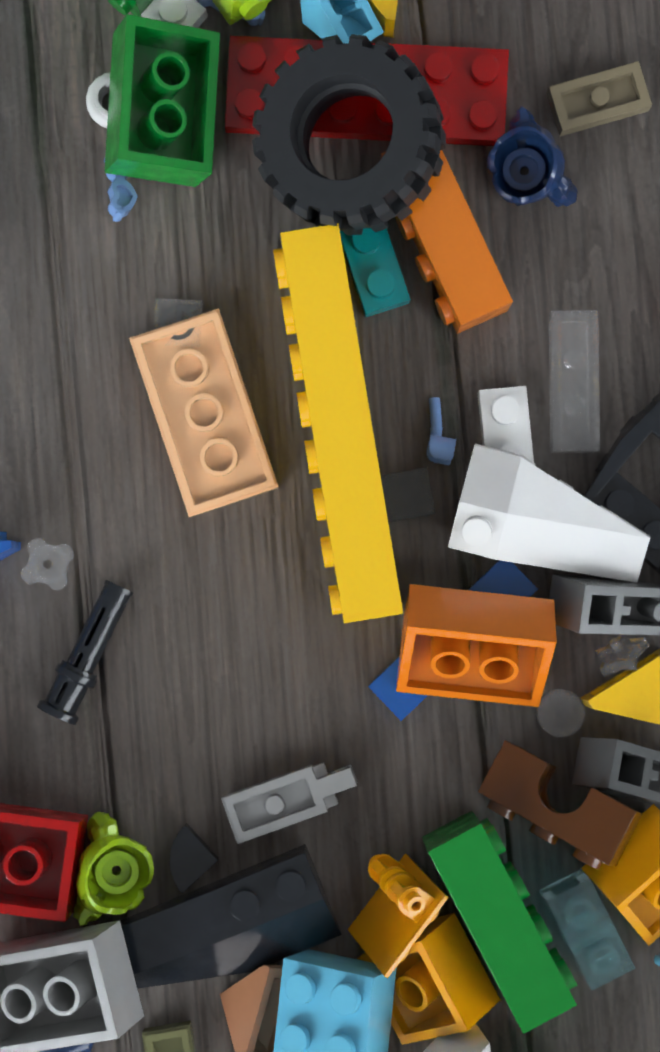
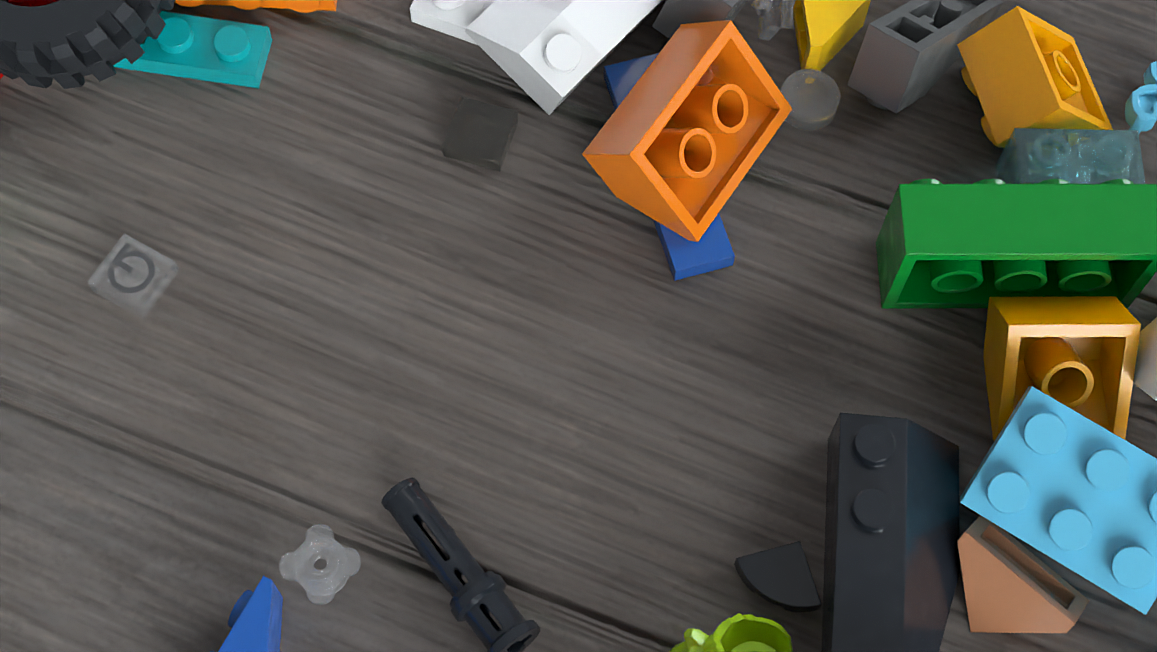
camera: 65 degrees left, 20 degrees down
(204, 415) = (256, 298): light nougat tile -> none
(285, 800) = (763, 427): light grey hinge -> none
(340, 422) = (363, 142): yellow brick -> none
(396, 911) = (960, 353): light orange hinge -> none
(439, 448) = (446, 79): medium blue hand -> none
(597, 828) = (963, 97): reddish brown arch -> none

